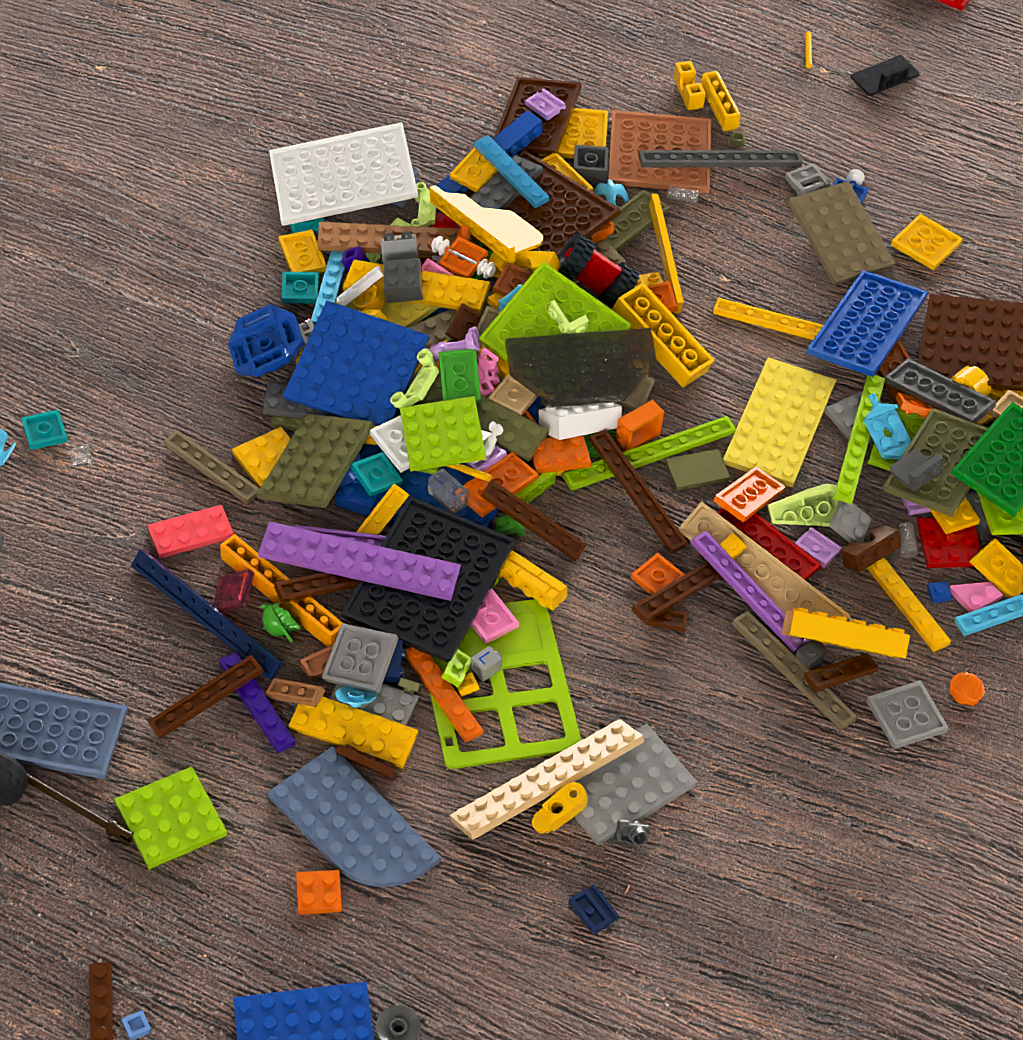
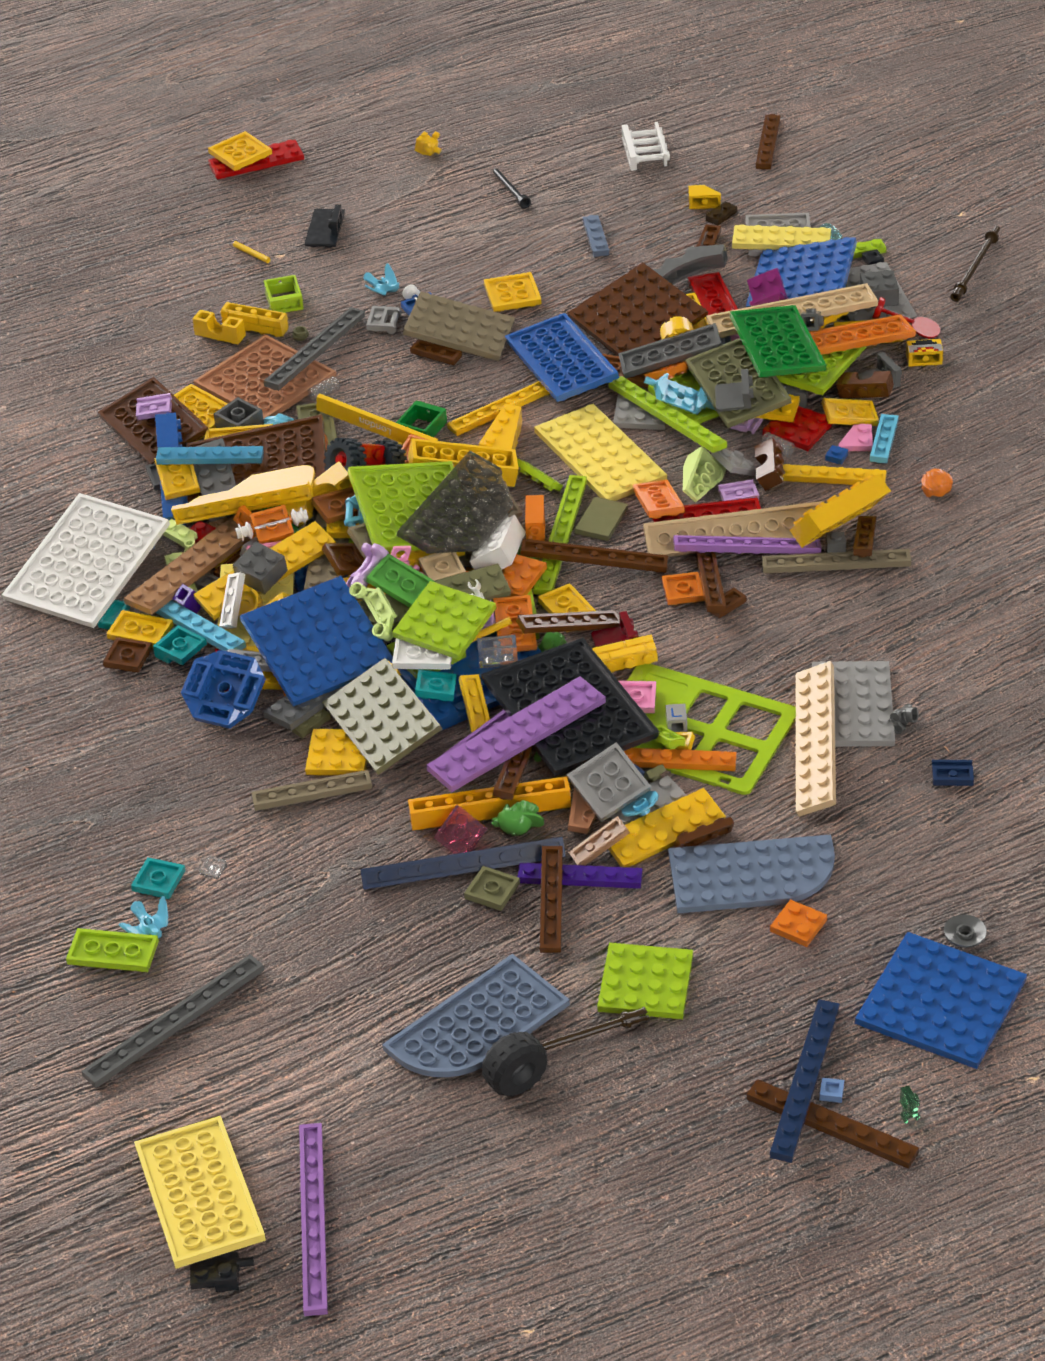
camera: 45 degrees left, 10 degrees down
(128, 998) = (804, 1081): none -> dark blue plate
(190, 531) = (364, 836): coral plate -> none
(193, 649) = (492, 888): none -> olive plate
(268, 263) = (127, 654): none -> reddish brown plate
(399, 246) = (214, 558): brick -> none
(547, 820) = (849, 756): yellow piece -> none
(556, 562) = (616, 634): none -> dark red bracket
(564, 326) = (413, 490): yellowish green bracket -> none
(566, 506) = (564, 600): none -> yellow plate
(698, 269) = (419, 410): none -> green window
(709, 395) = (538, 476): none -> lime plate
(733, 545) = (700, 528): yellow plate -> none
(735, 341) = (504, 429): none -> yellow wedge
(766, 110) = (283, 303): none -> lime window
(798, 239) = (436, 352): none -> reddish brown plate
(850, 155) = (386, 284): none -> medium azure animal
(907, 714) = (929, 524): light grey plate -> none

